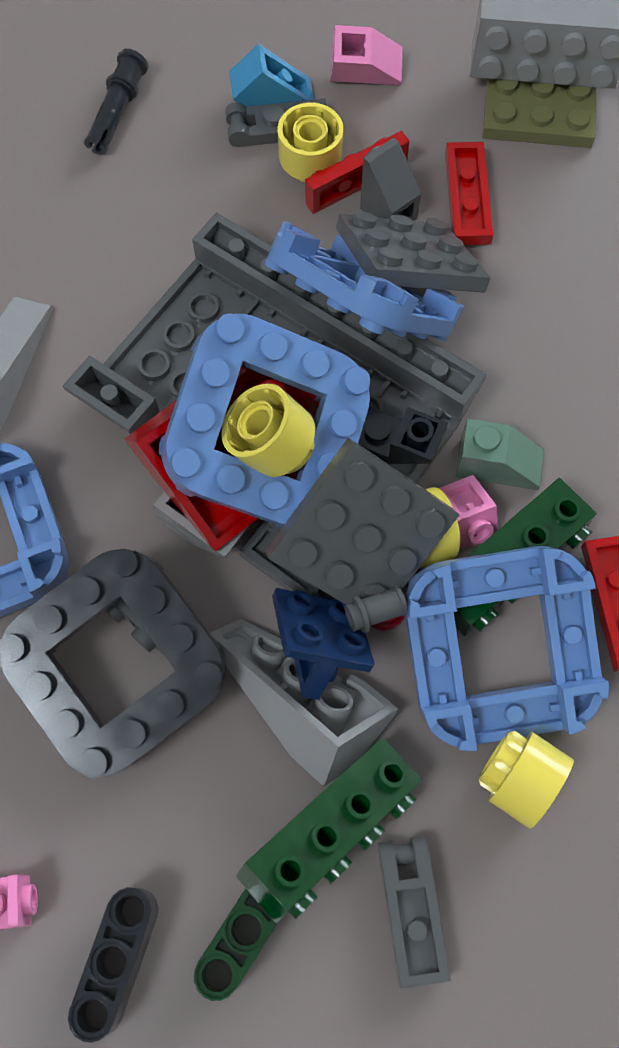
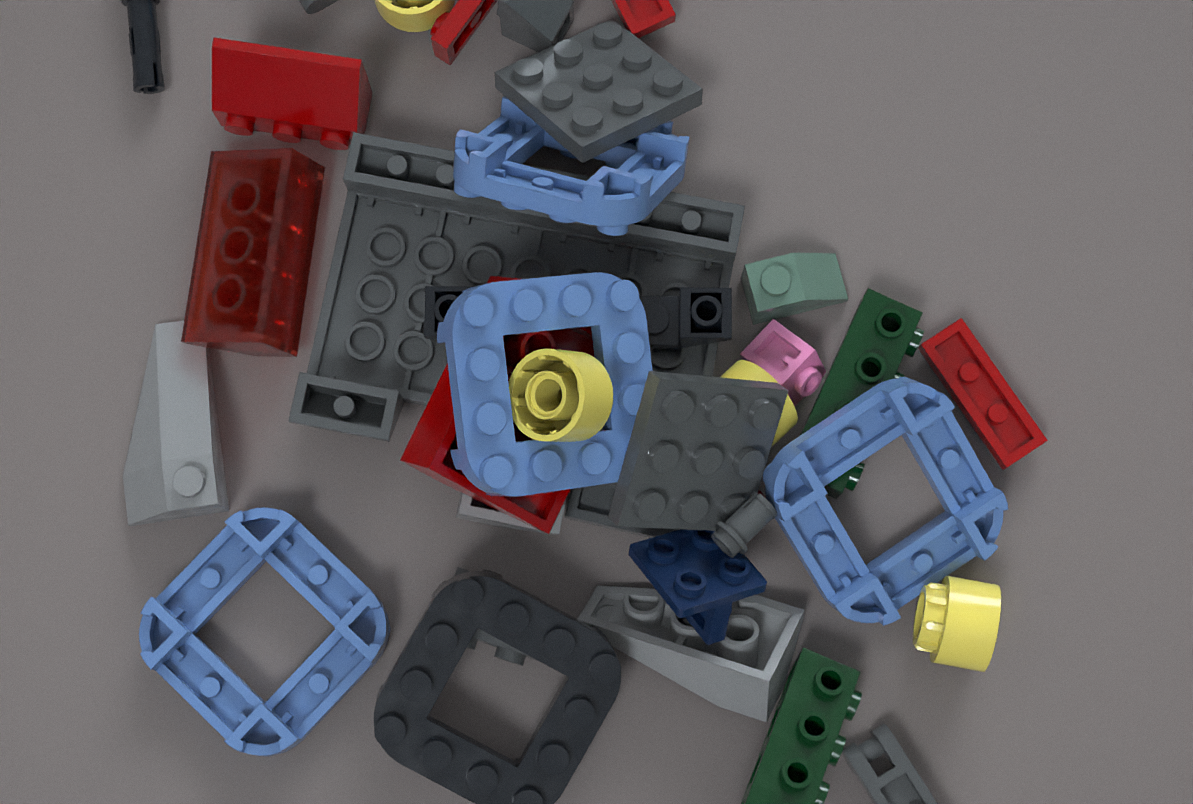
camera: 25 degrees left, 10 degrees up
(107, 272) = (254, 252): none -> clear red slope
(186, 173) = (289, 93): none -> red slope

